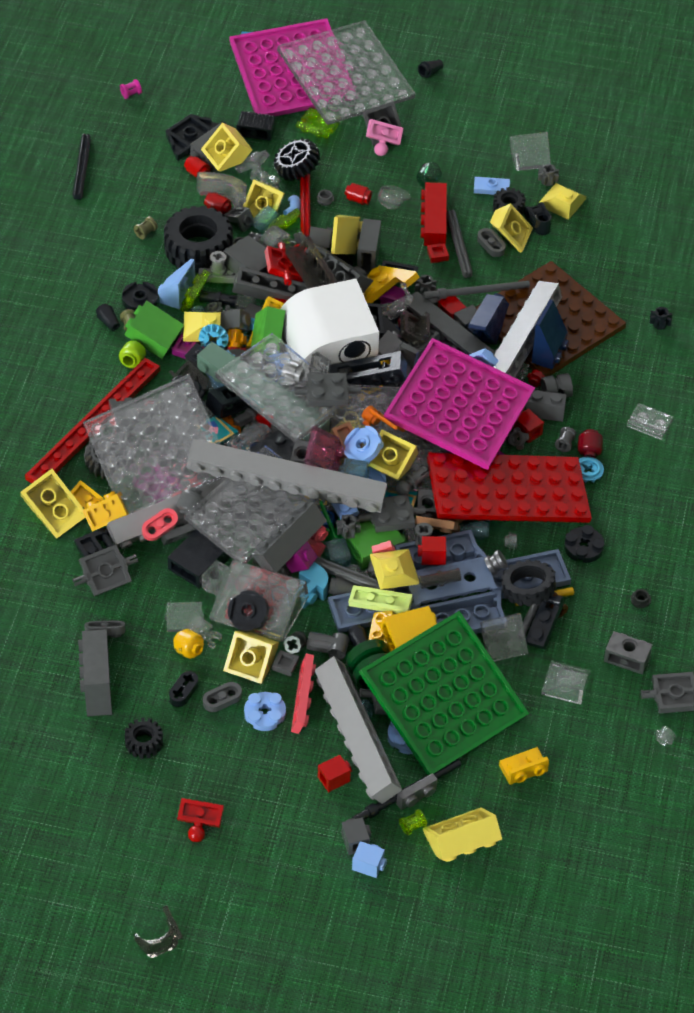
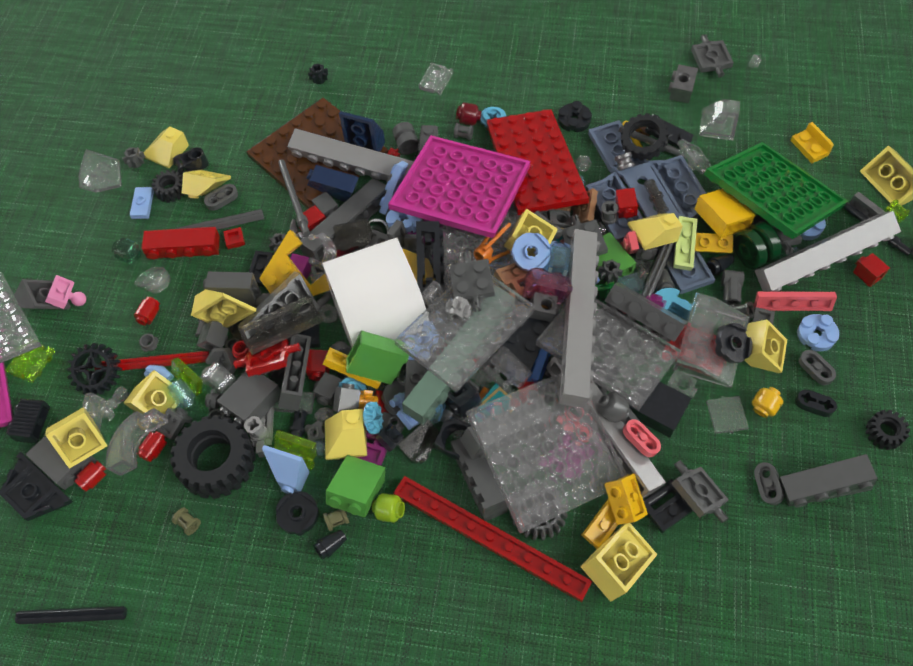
camera: 90 degrees left, 10 degrees up
(204, 629) = (744, 394): clear plate -> none
(643, 595) = (624, 79): pearl dark grey plate -> none

